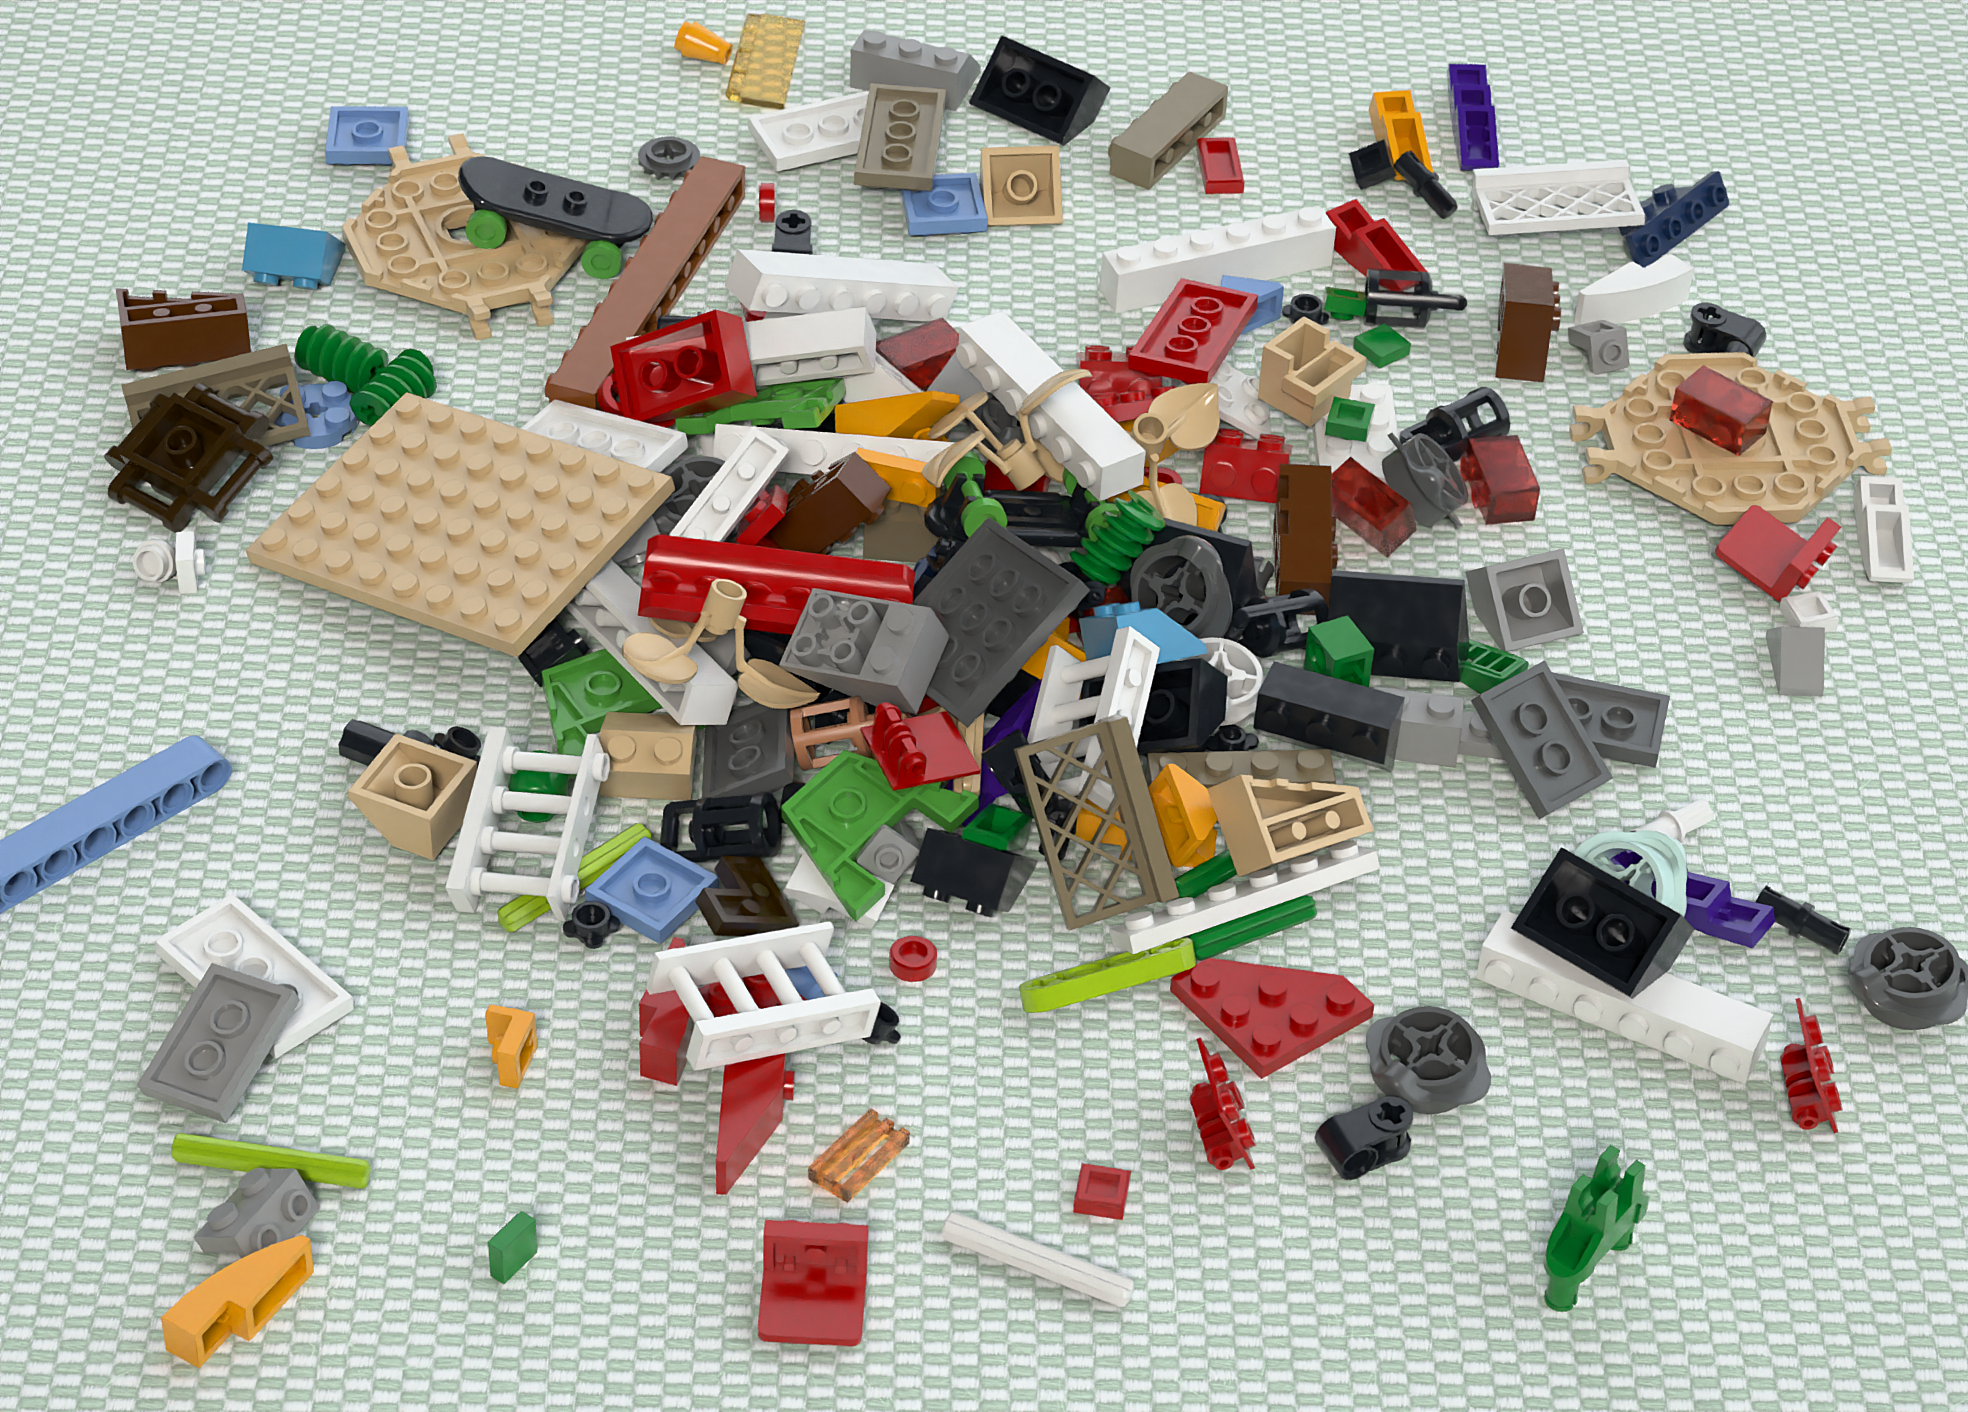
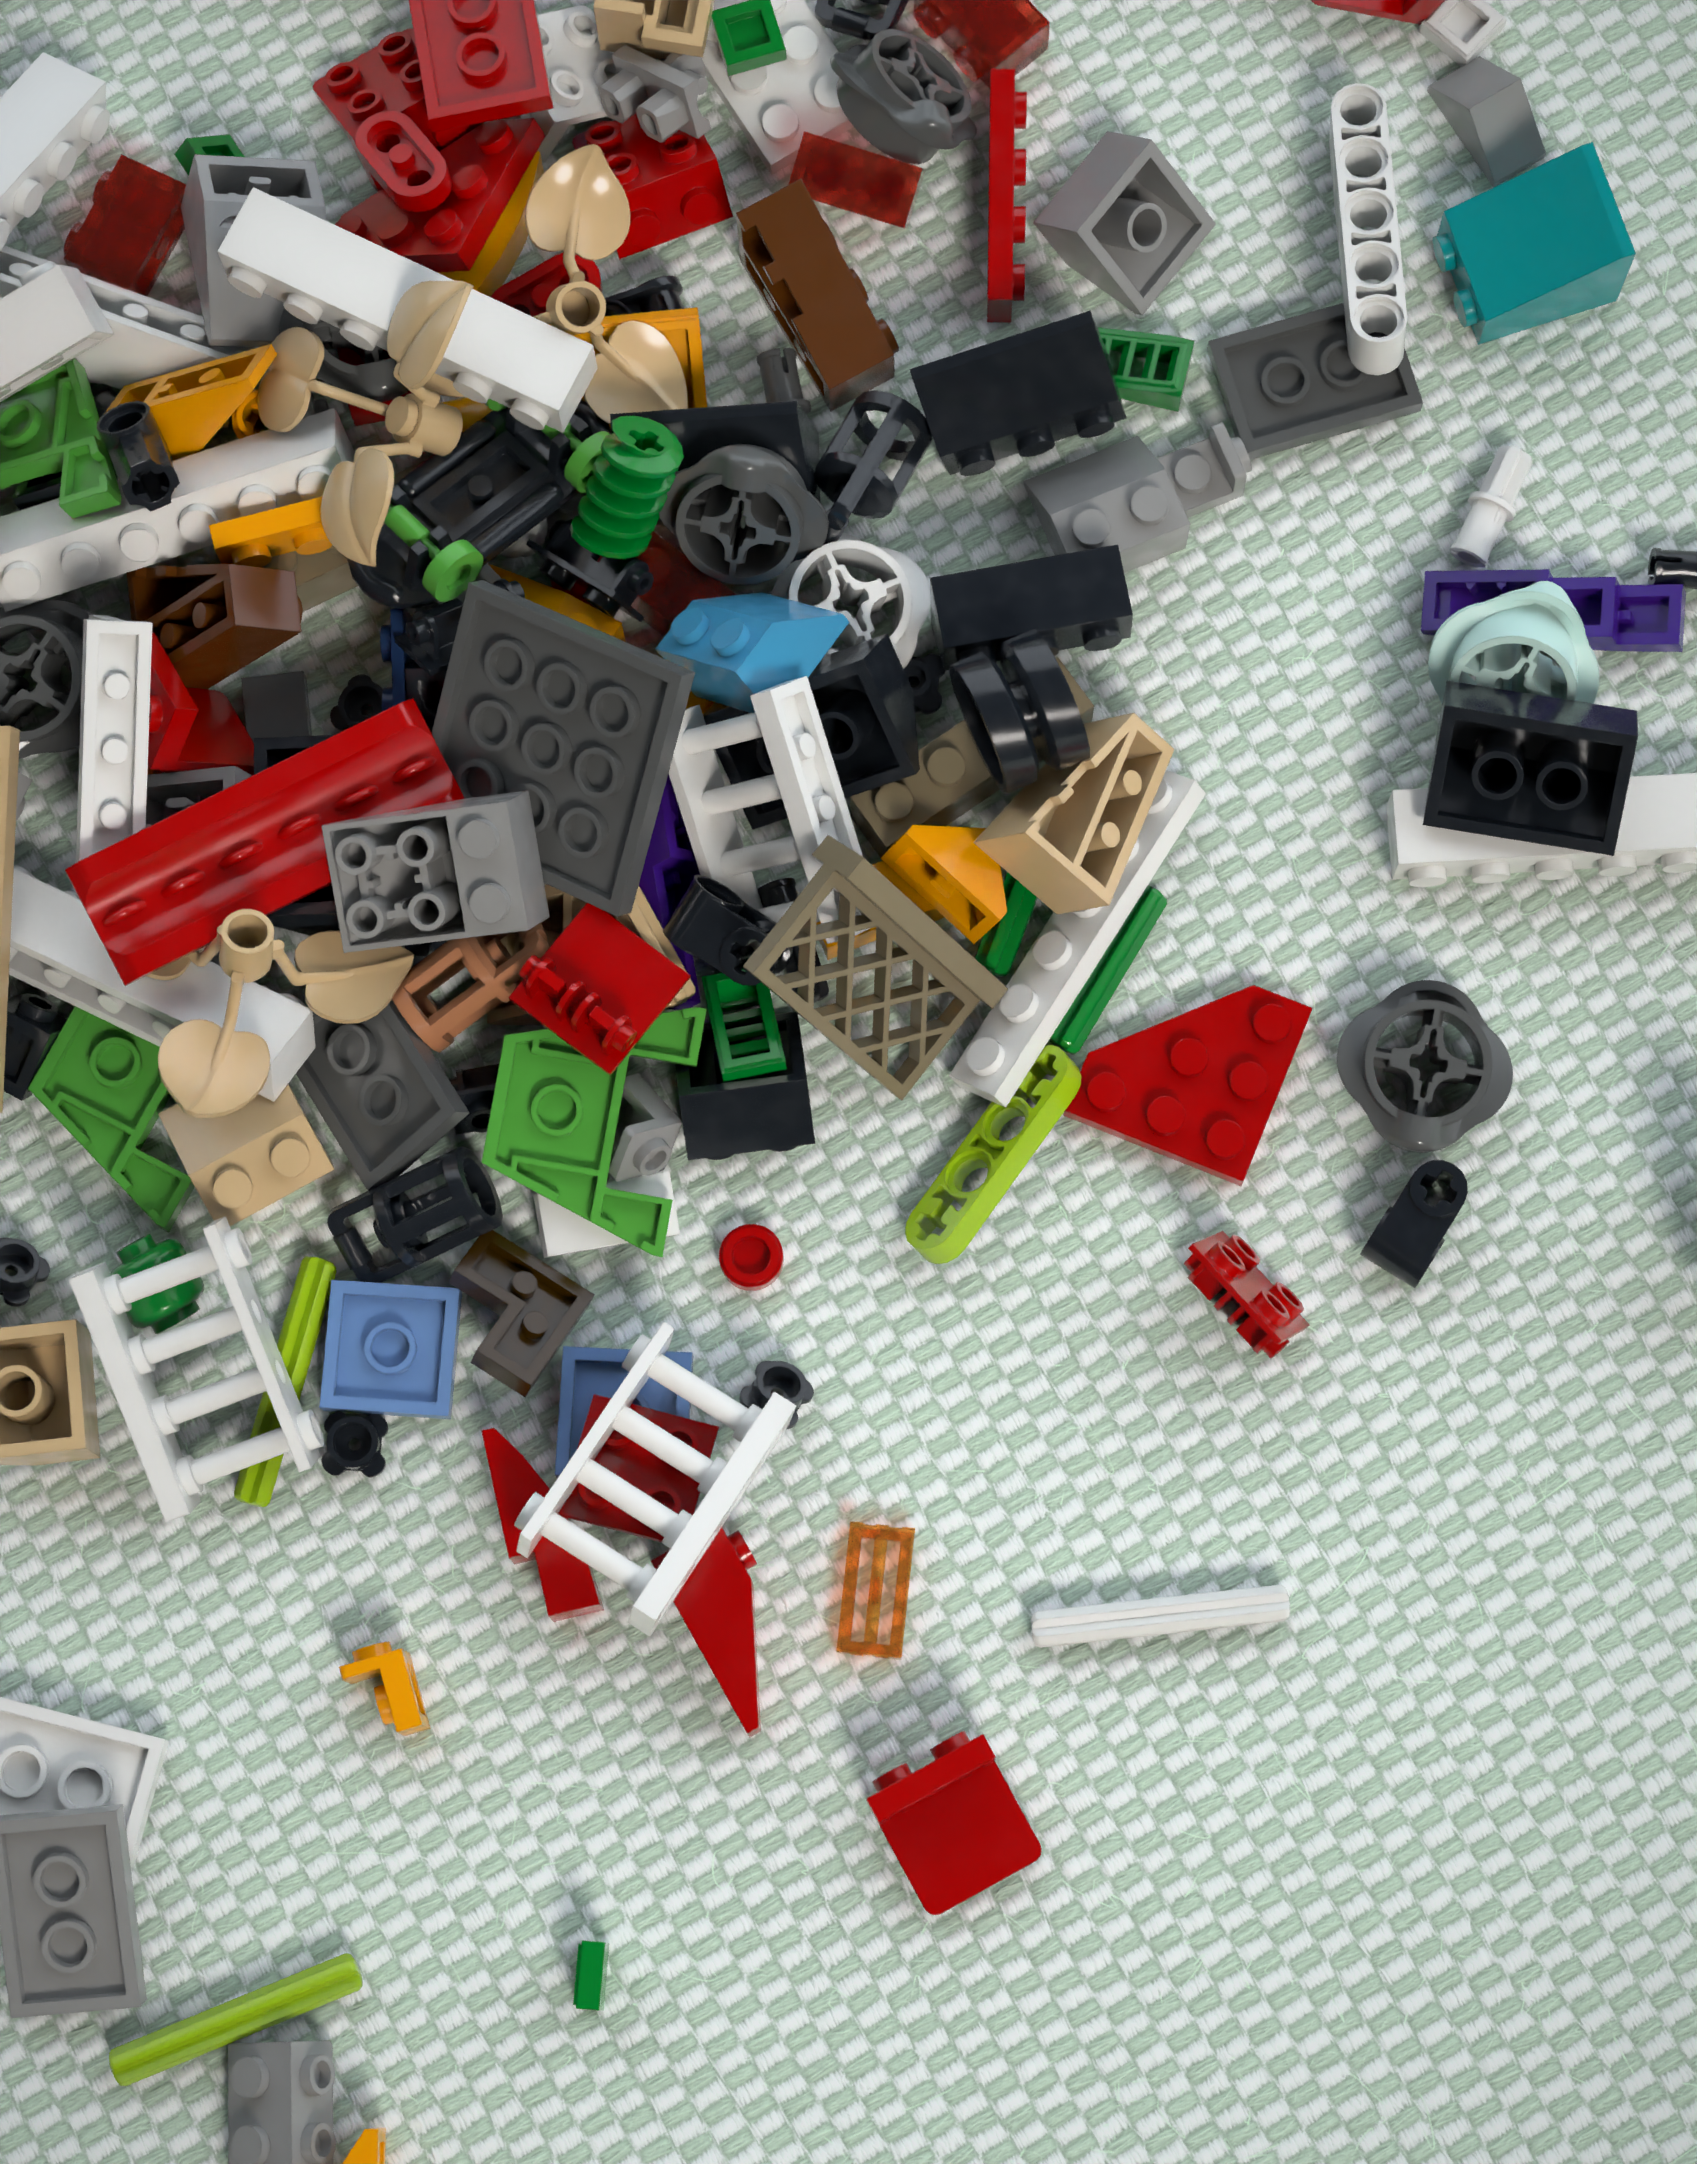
camera: 25 degrees left, 35 degrees up
(844, 412) = (139, 454): none -> black piece
(1102, 1191) = (1169, 1470): red tile -> none
(1106, 372) = (412, 169): none -> red plate
(1277, 416) = (658, 91): none -> light grey hips
(1282, 729) = (1020, 711): none -> black wheel
(1339, 651) = (983, 505): green brick -> none
(1468, 540) = (1005, 220): none -> red plate
(1541, 739) = (1287, 477): dark grey plate -> none
(1676, 657) = (1367, 252): none -> white beam
(1782, 714) = (1536, 247): none -> teal slope

